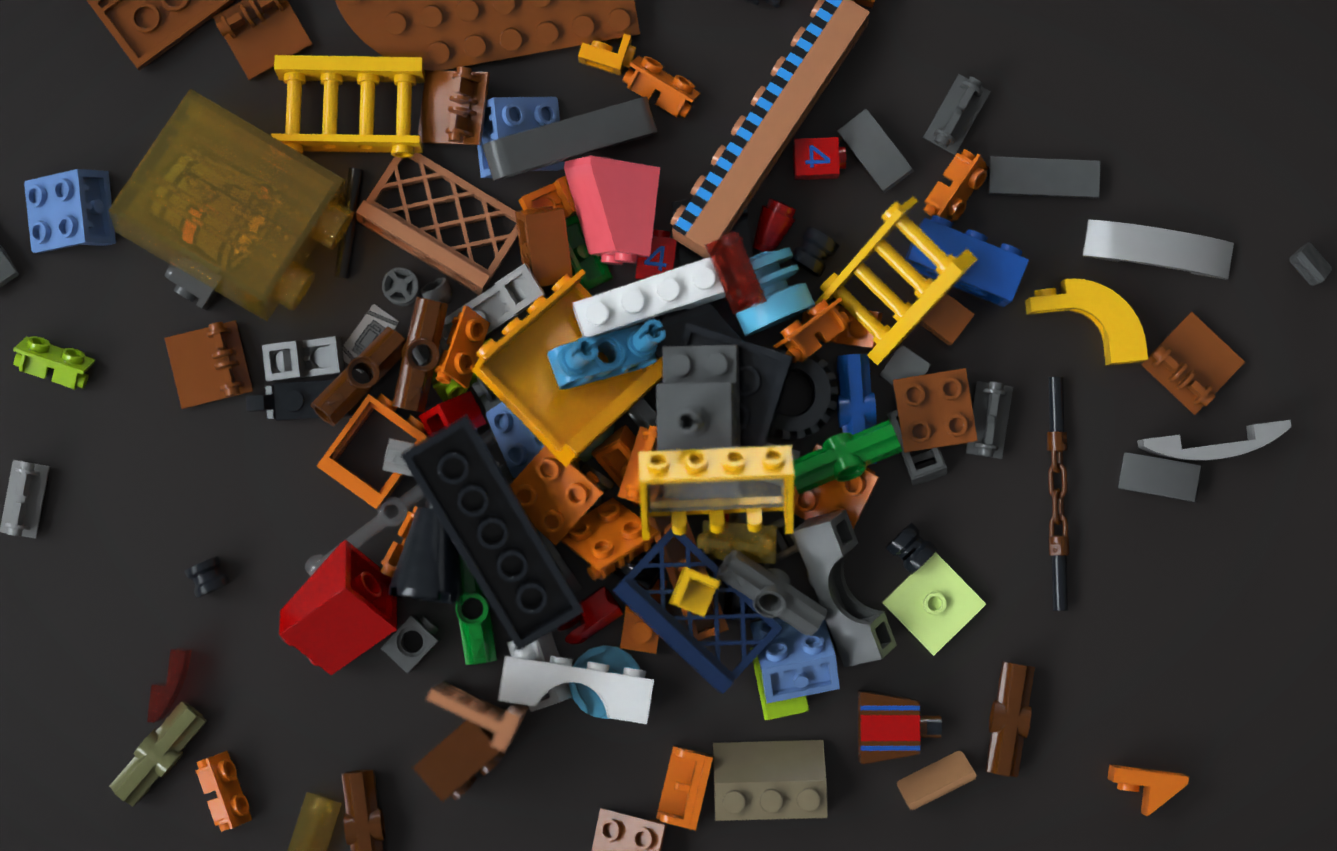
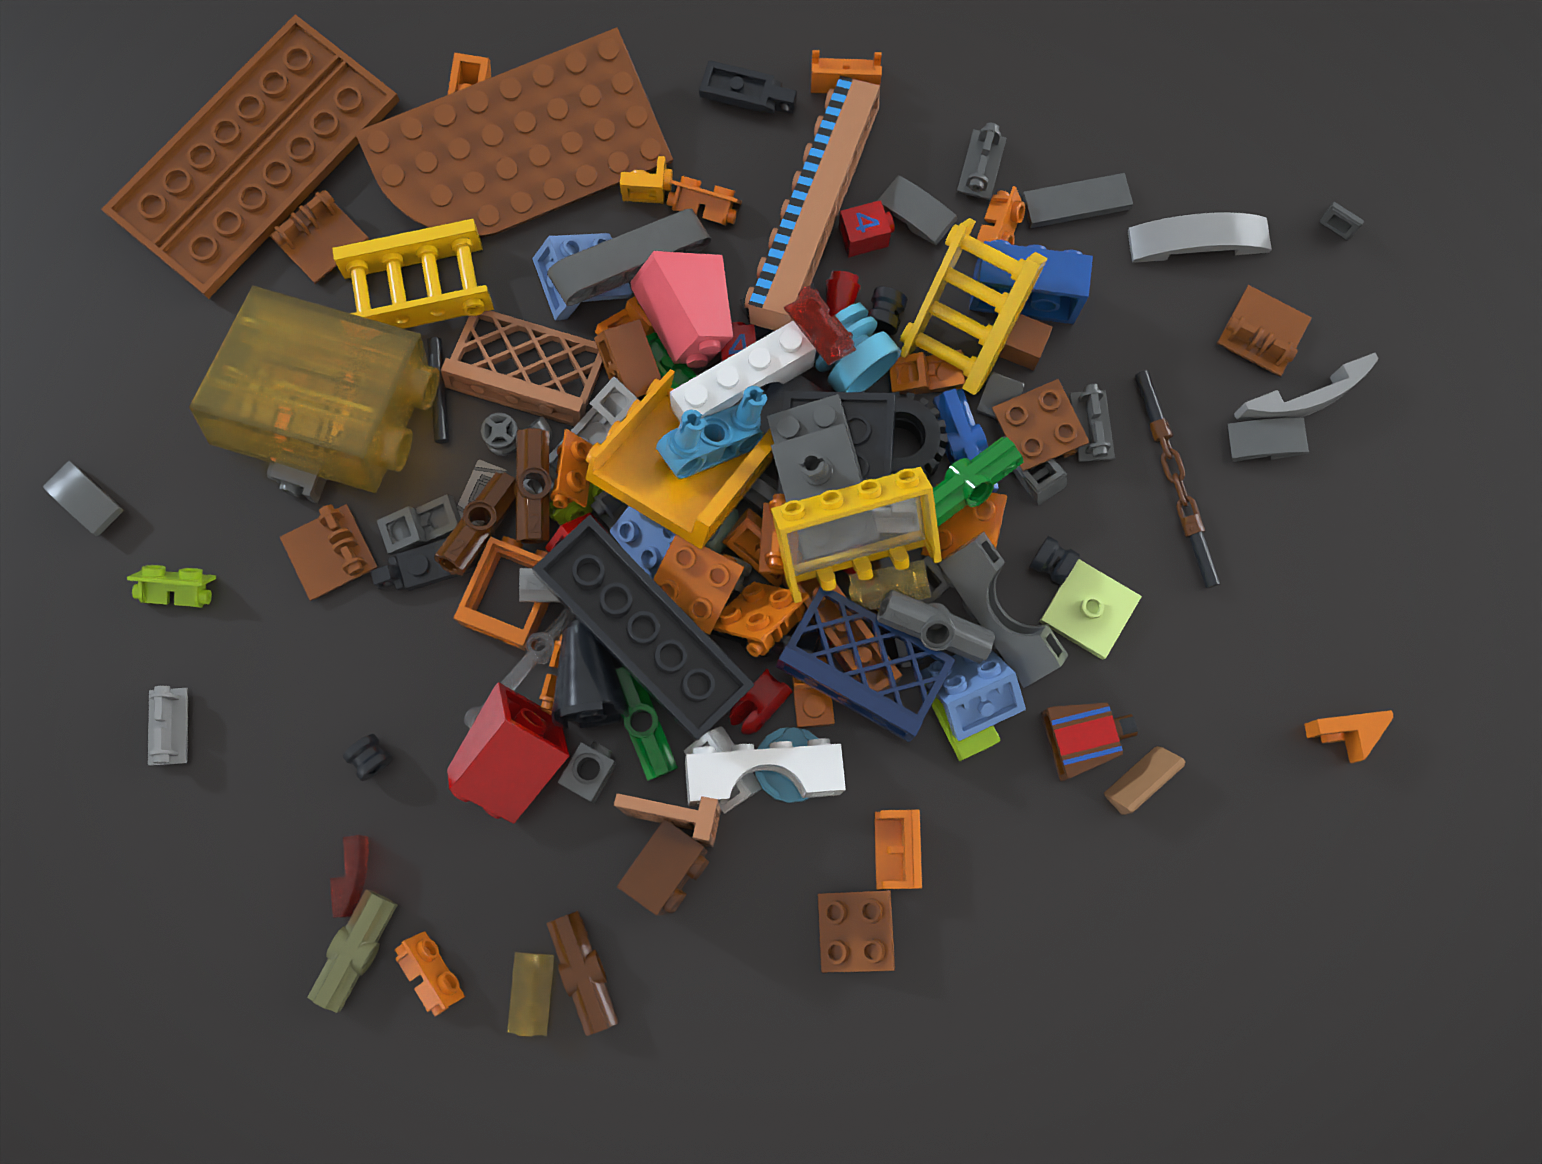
camera: 20 degrees left, 10 degrees down
(69, 210) = (161, 436): medium blue bracket -> none
(453, 107) = (514, 258): dark orange hinge -> none
(694, 591) = (860, 639): yellow panel -> none
(769, 780) = (981, 820): dark tan slope -> none
(823, 320) = (911, 362): orange hinge -> none
(1010, 719) = (1198, 701): reddish brown piece -> none
(1113, 316) = (1169, 298): yellow arch -> none

